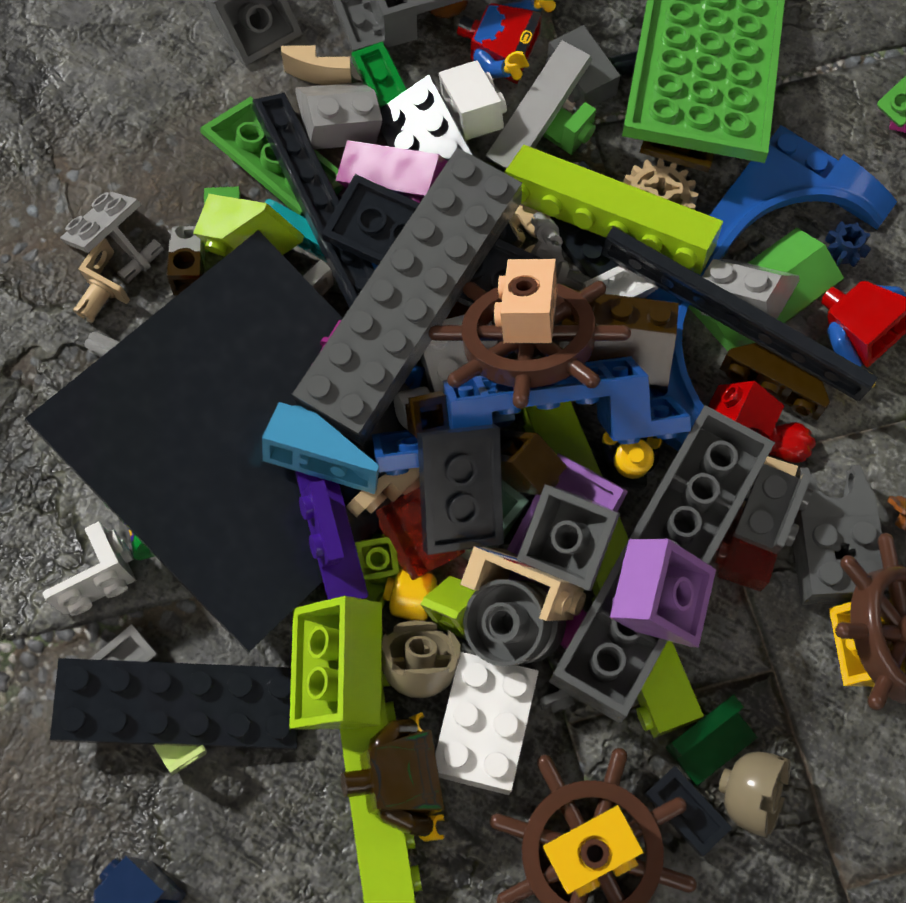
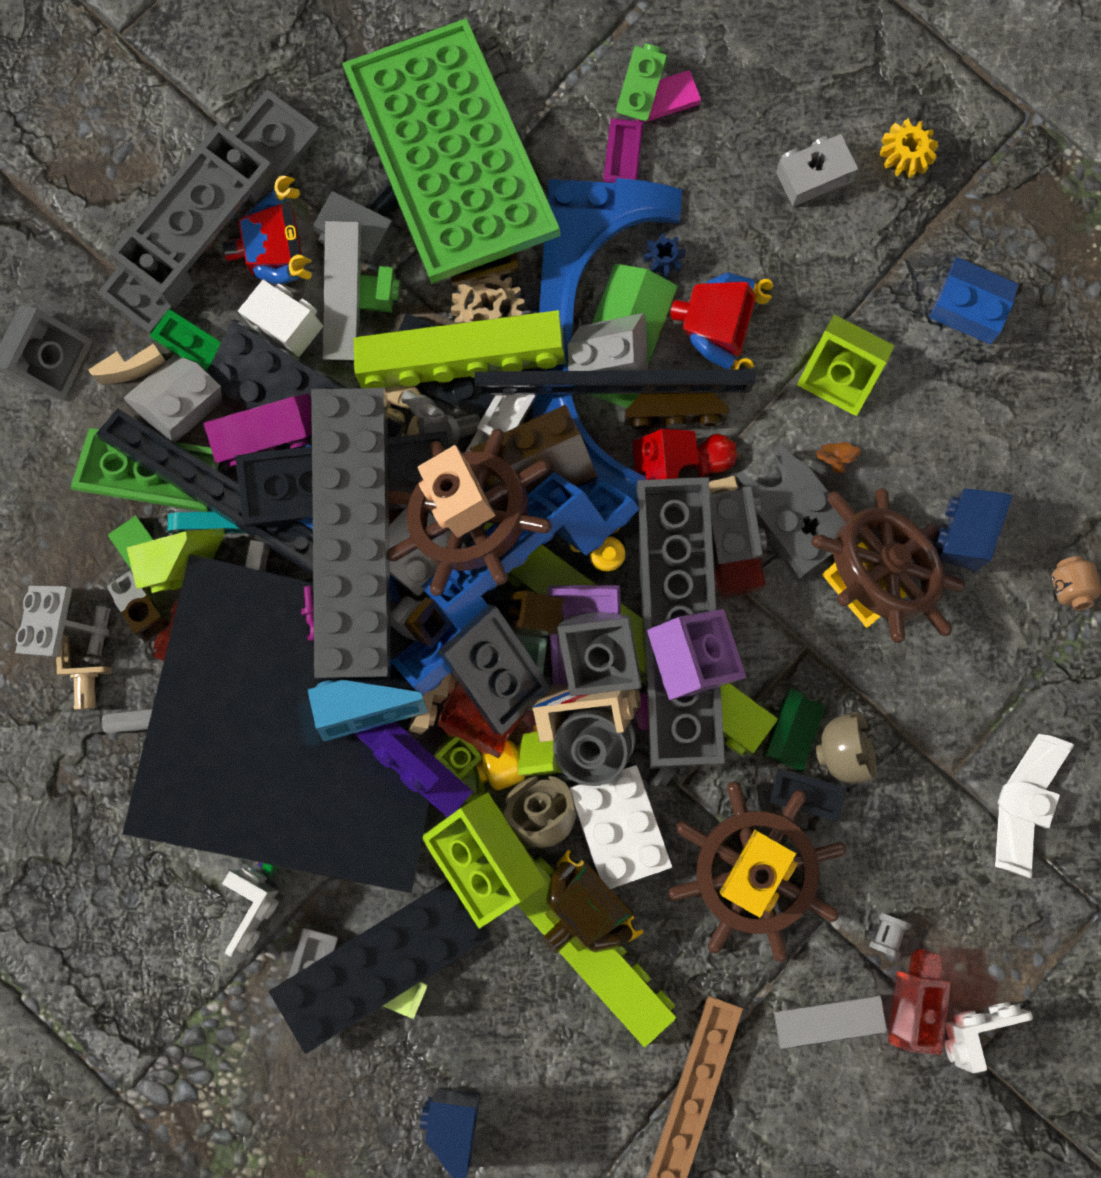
camera: 30 degrees left, 10 degrees up
(864, 138) = (623, 150): none -> magenta tile

